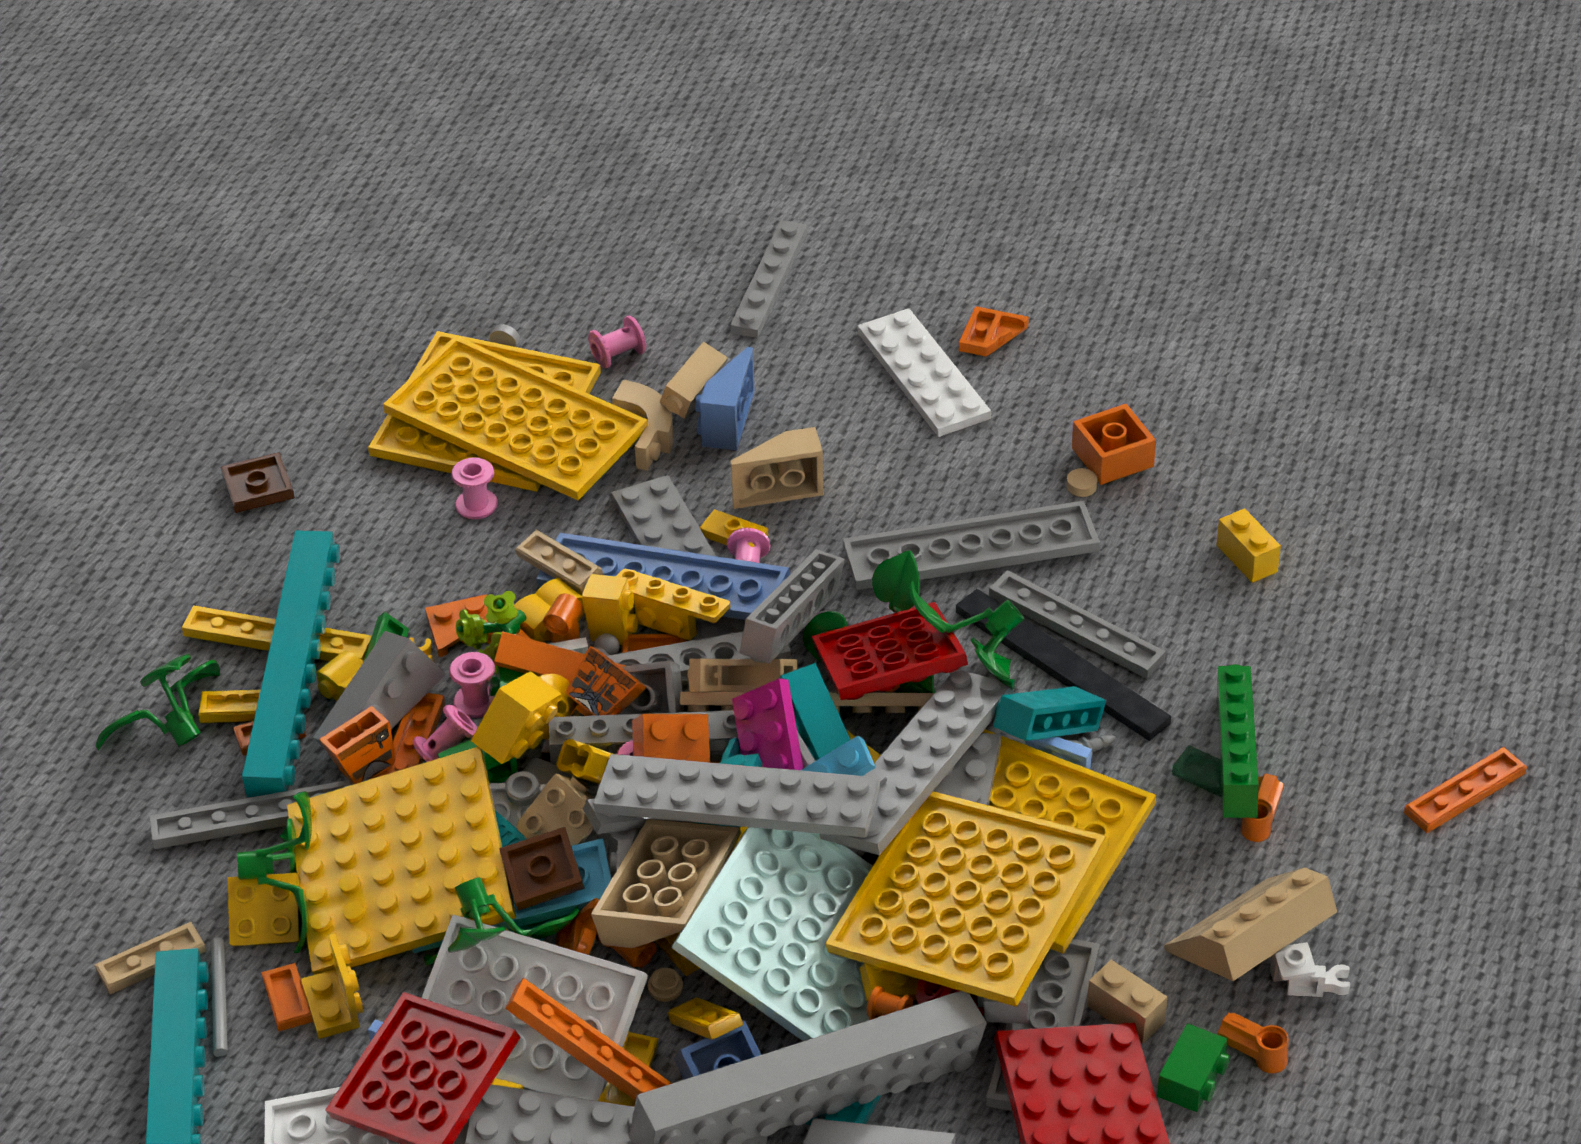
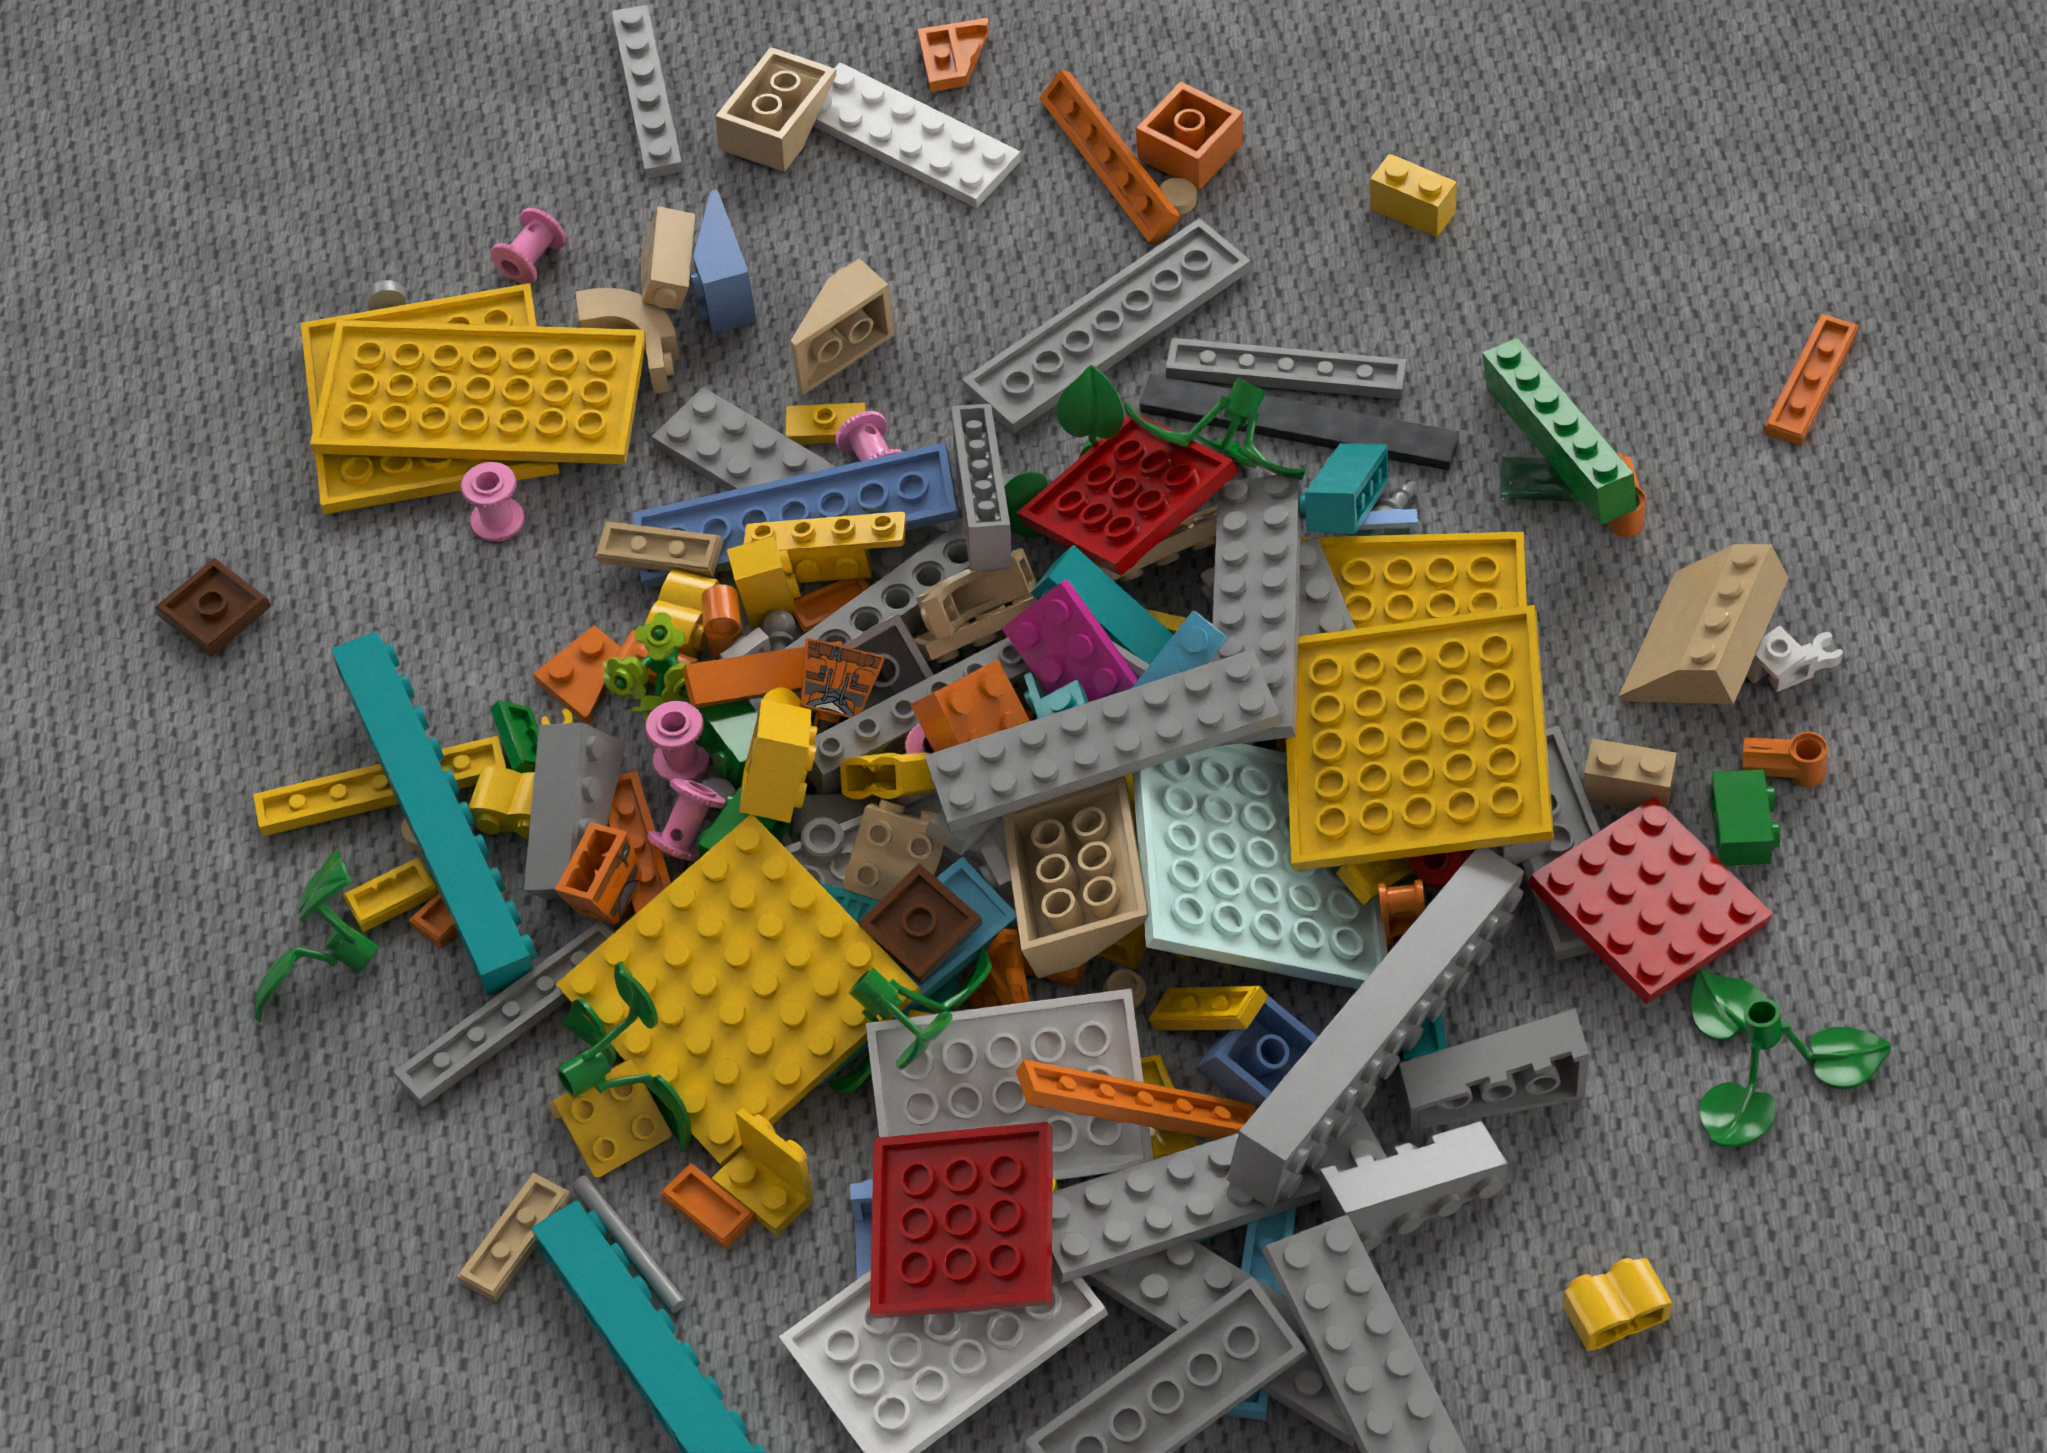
camera: 25 degrees left, 10 degrees up
(838, 318) = (774, 109): none -> tan slope
(1050, 438) = (1110, 157): none -> orange plate

